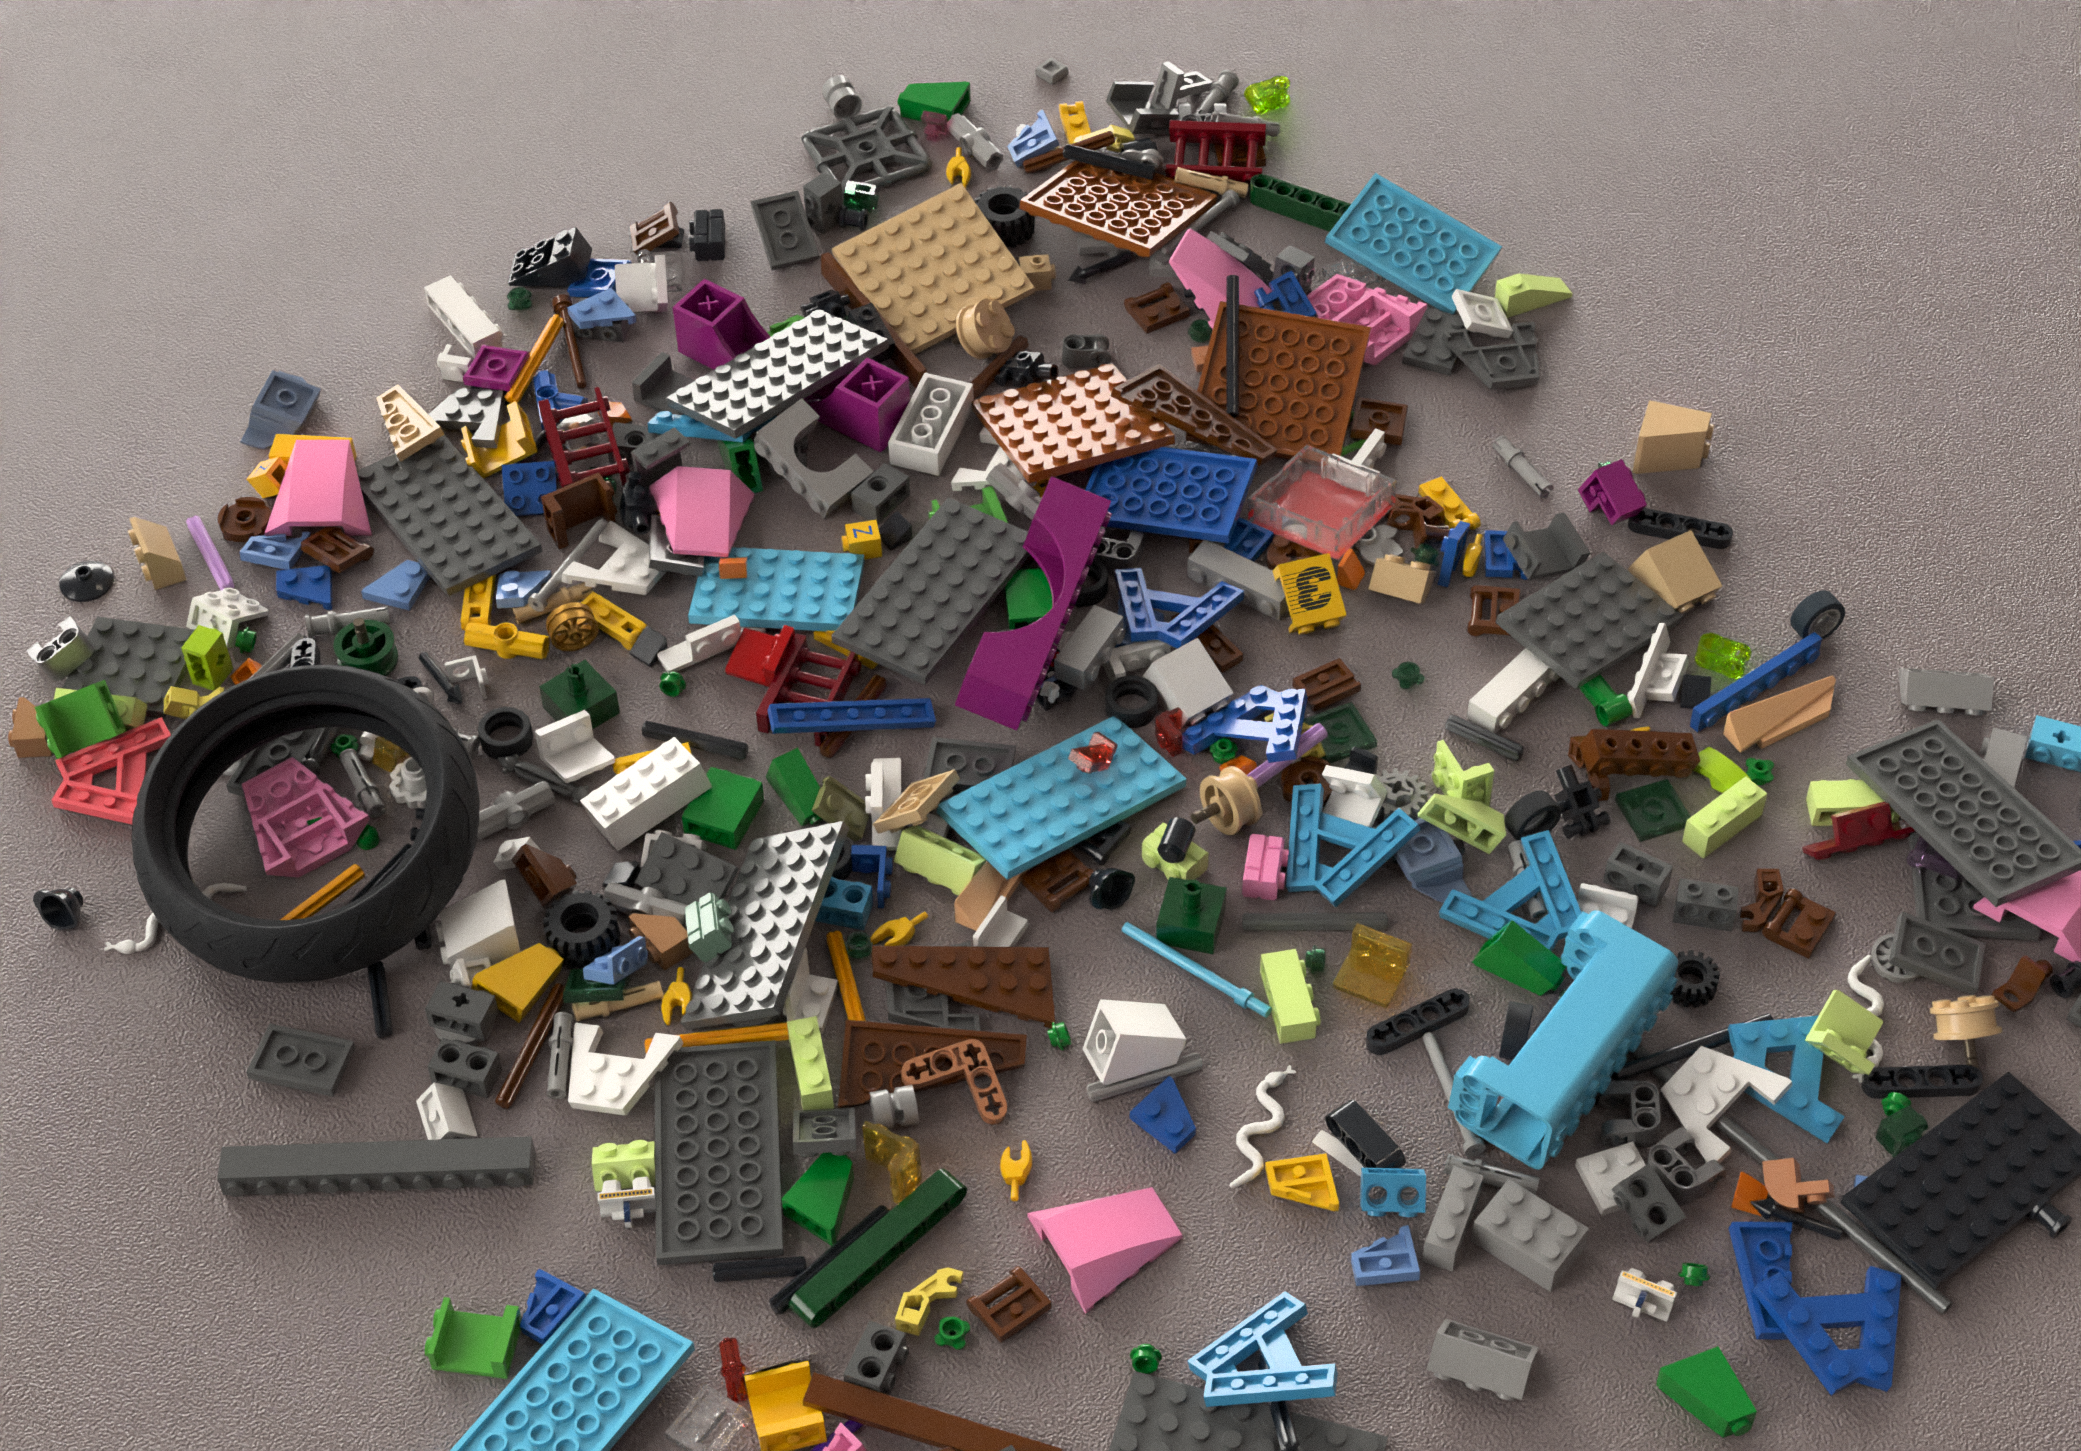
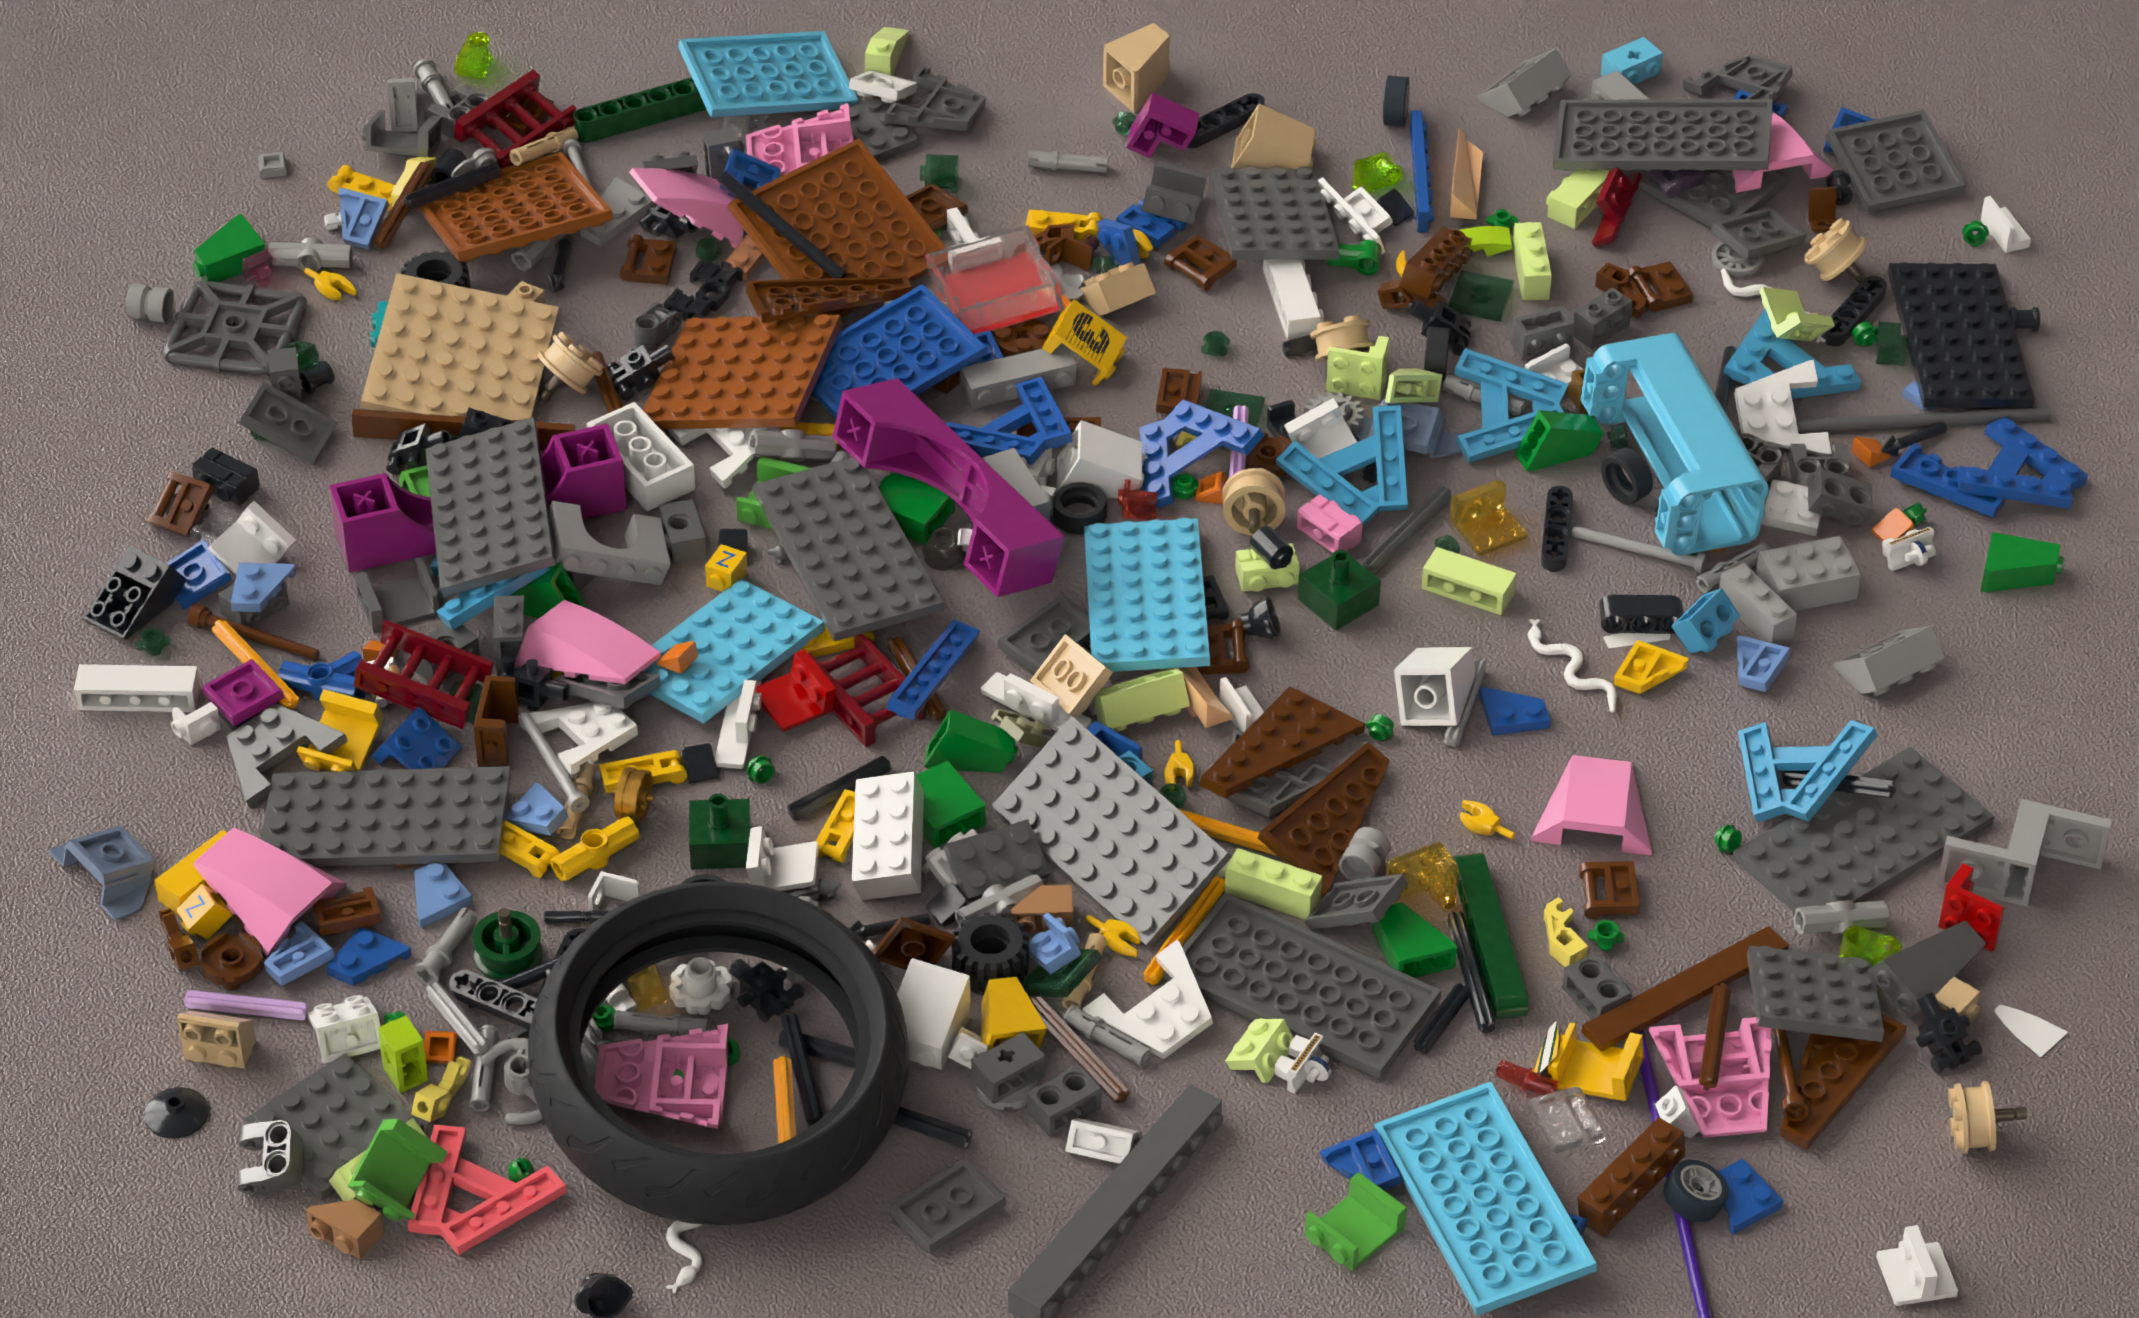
camera: 55 degrees left, 5 degrees down
(228, 489) = (180, 947): none -> reddish brown piece
(407, 422) = (239, 786): tan wing -> none
(550, 840) = (883, 927): none -> black piece
(708, 926) = (1075, 866): sand green brick -> none
(961, 1065) = (1364, 792): nougat beam -> none
(1096, 755) = (1135, 544): clear red bracket -> none
(1175, 354) = (715, 281): none -> black piece
(1241, 996) = (1441, 608): medium azure bar -> none
(1272, 128) = (496, 86): light grey pin -> none
(1424, 403) = (941, 171): none -> clear green brick
(1478, 745) = (1348, 335): none -> tan wheel
(1662, 1266) = (1893, 525): none -> slope
(1785, 1186) = (1884, 421): nougat brick -> none

